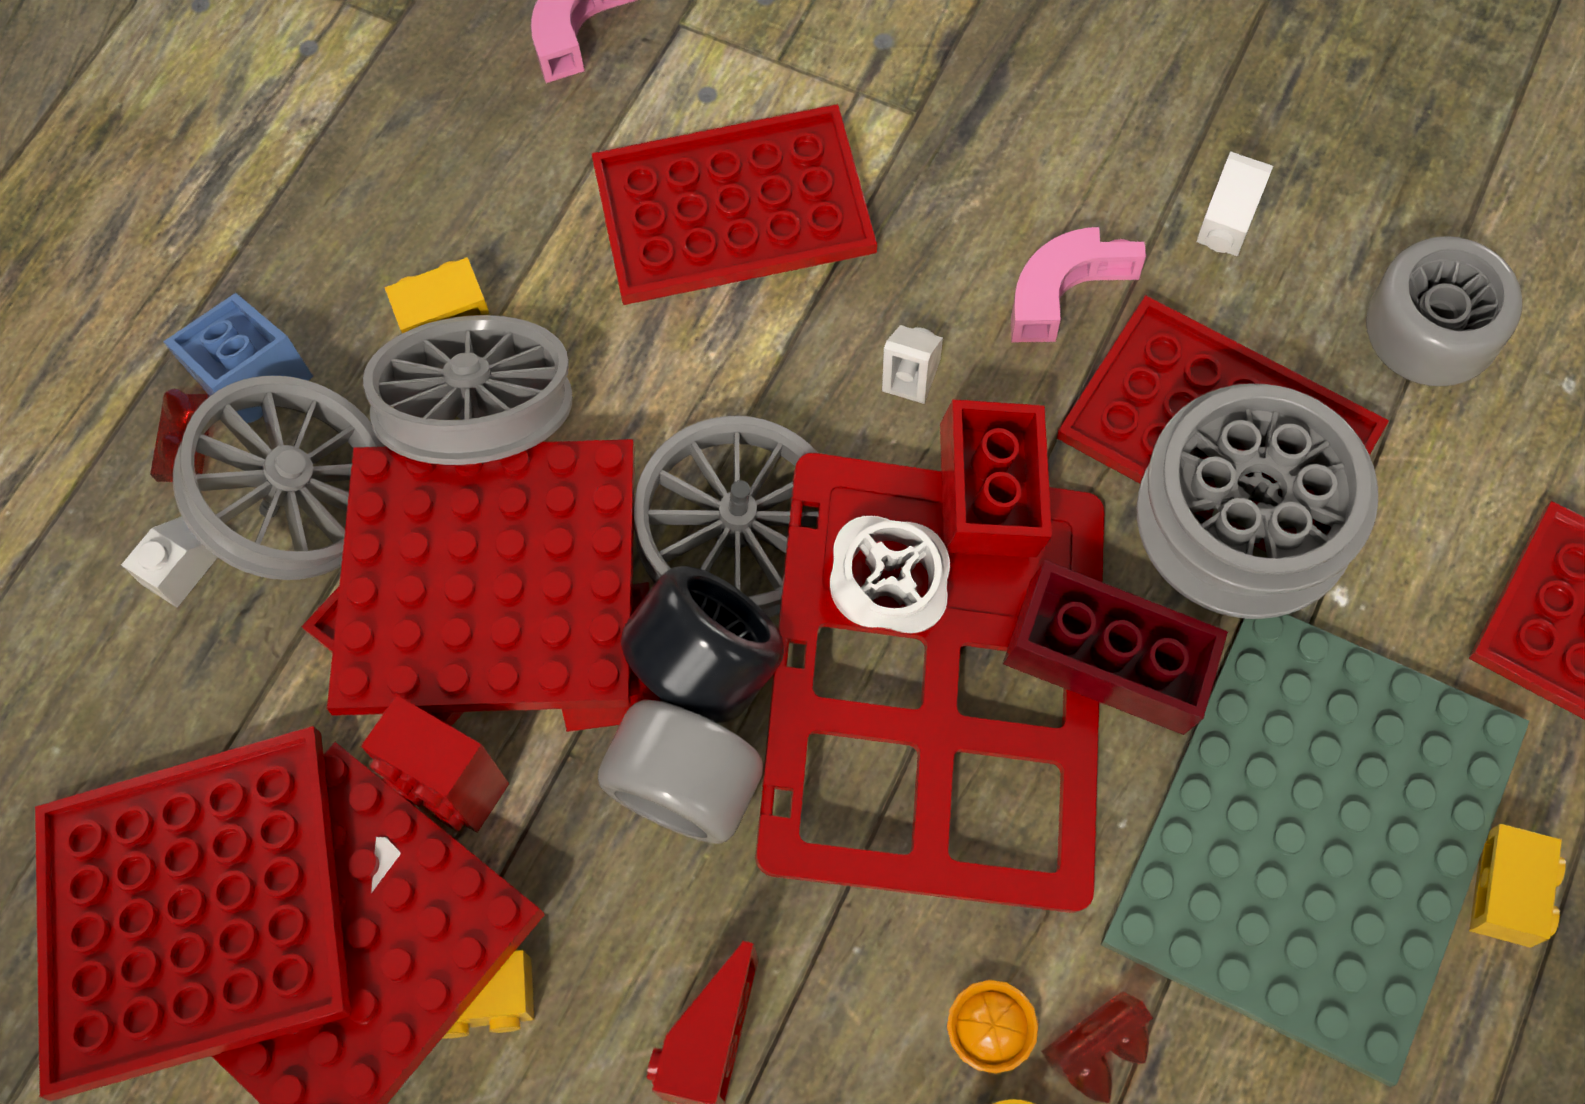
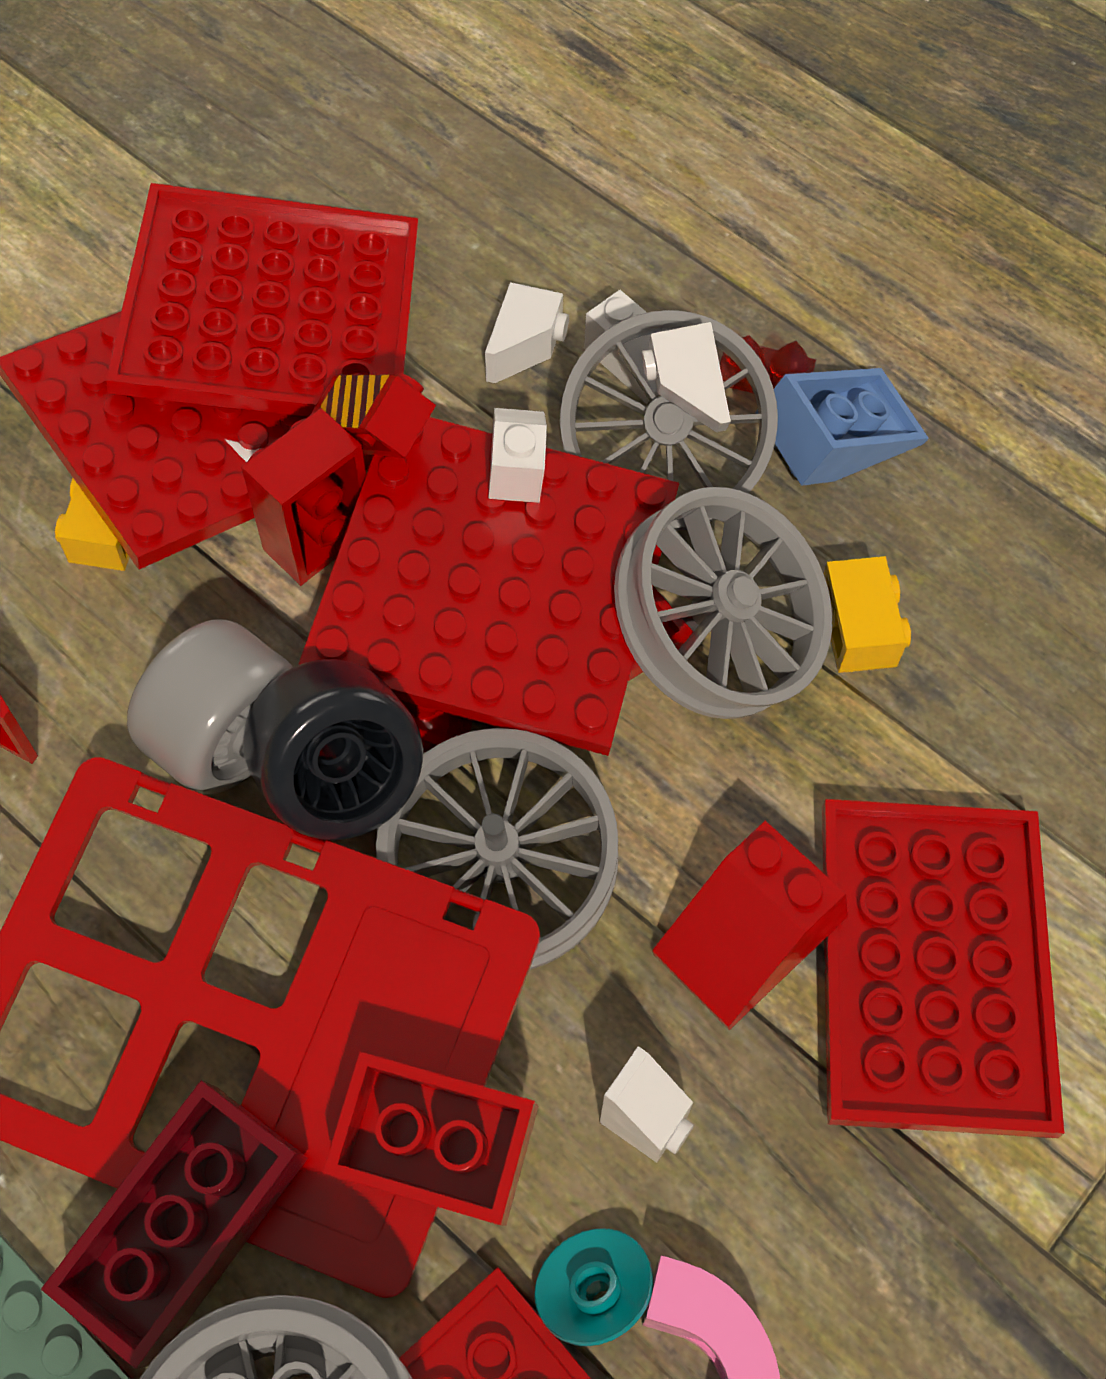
camera: 100 degrees right, 5 degrees down
(170, 657) = (524, 331): none -> white slope
(249, 436) = (689, 373): none -> white slope
(345, 712) = (378, 410): none -> red brick
(362, 566) = (517, 455): none -> white slope
(746, 321) = (751, 924): none -> red slope
(857, 602) = (324, 924): white piece -> none
(1025, 361) = (581, 1269): none -> teal dish

